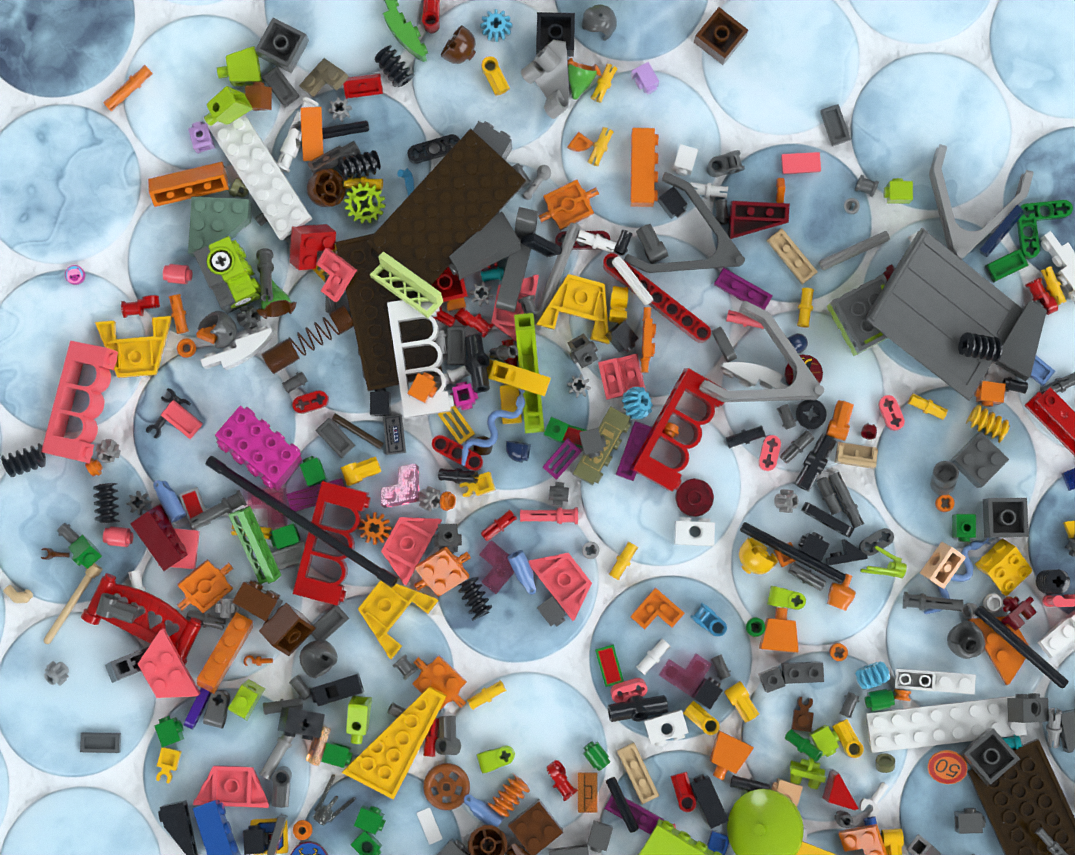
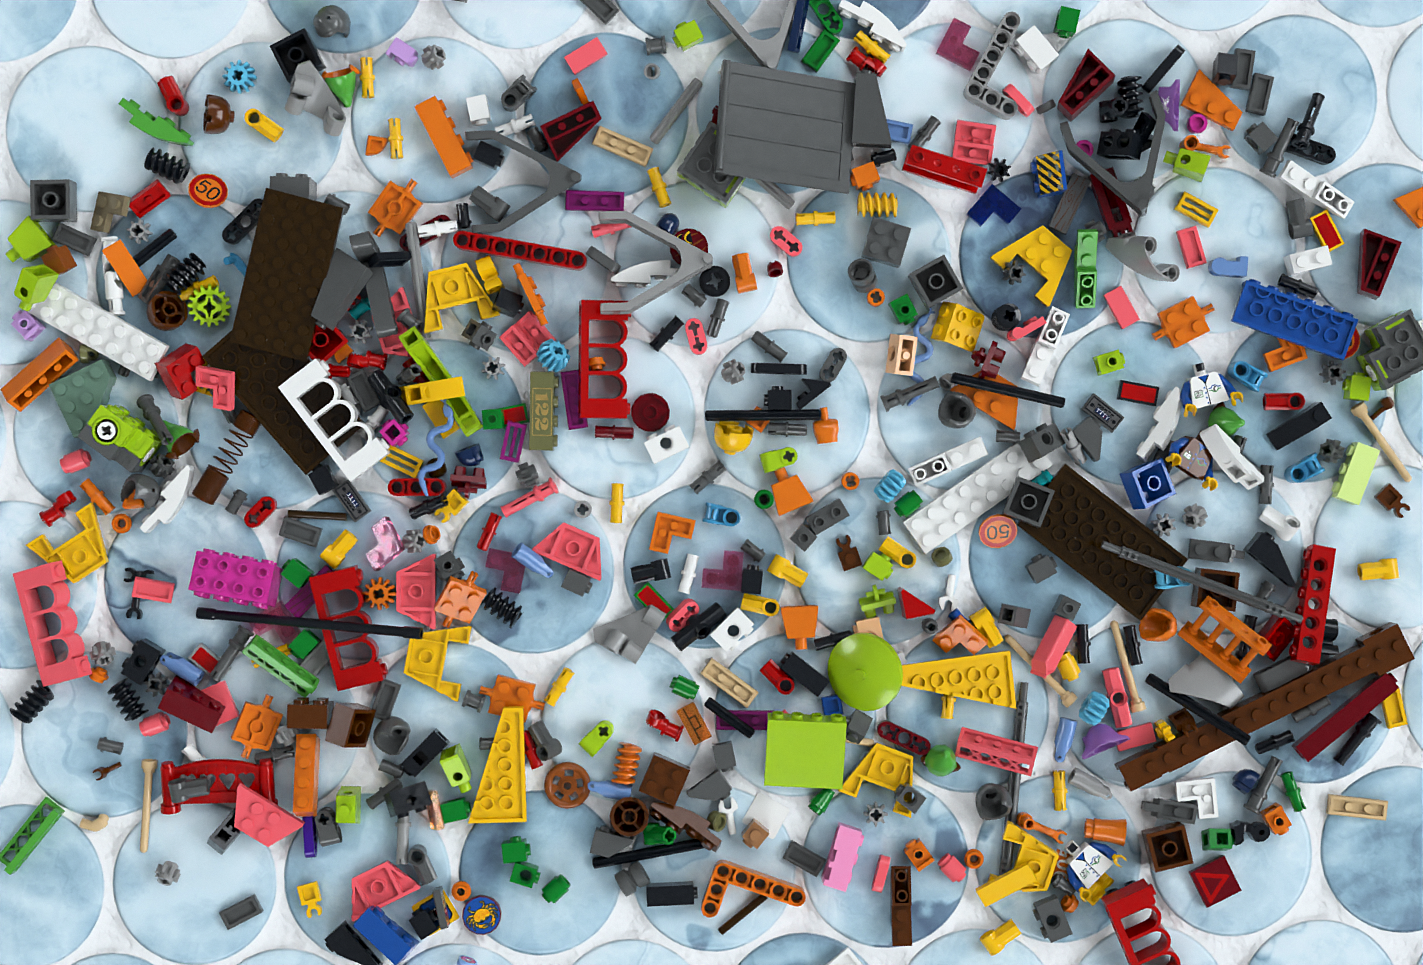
camera: 30 degrees left, 5 degrees up
(84, 552) = (132, 754): green brick -> none
(149, 472) = (152, 655): none -> black brick
(169, 731) = (296, 869): green brick -> none
(258, 661) = (341, 765): orange hand -> none
(324, 813) = (472, 866): clear smoke plant -> none
(411, 280) = (287, 355): yellowish green fence -> none
(417, 106) = (208, 190): none -> piece
(423, 387) = (352, 446): orange brick -> none
(429, 826) = (571, 827): white sticker -> none
(504, 474) = (468, 484): none -> dark red hips
(543, 173) = (356, 190): light grey piece -> none
(574, 682) = (630, 633): none -> light grey panel
(592, 442) = (531, 413): dark grey brick -> none
(625, 638) = (654, 571): none -> black piece
(632, 280) = (489, 247): white axle -> none
(654, 498) = (614, 432): none -> dark red axle
(670, 95) = (433, 57): none -> light grey gear
(715, 581) = (707, 477): none -> dark grey pin
(803, 745) = (861, 580): green pin -> none
(815, 462) = (741, 323): black piece -> none
(844, 496) = (784, 340): dark grey pin -> none
(856, 455) = (774, 296): tan hinge -> none
(894, 568) = (861, 381): lime plant -> none
(902, 694) = (925, 489): orange bush -> none
(904, 364) = (777, 193): none -> light grey axle
(980, 346) = (832, 139): black piece -> none
(993, 603) = (964, 364): white plate -> none
(999, 688) = (1008, 436): none -> dark grey pin

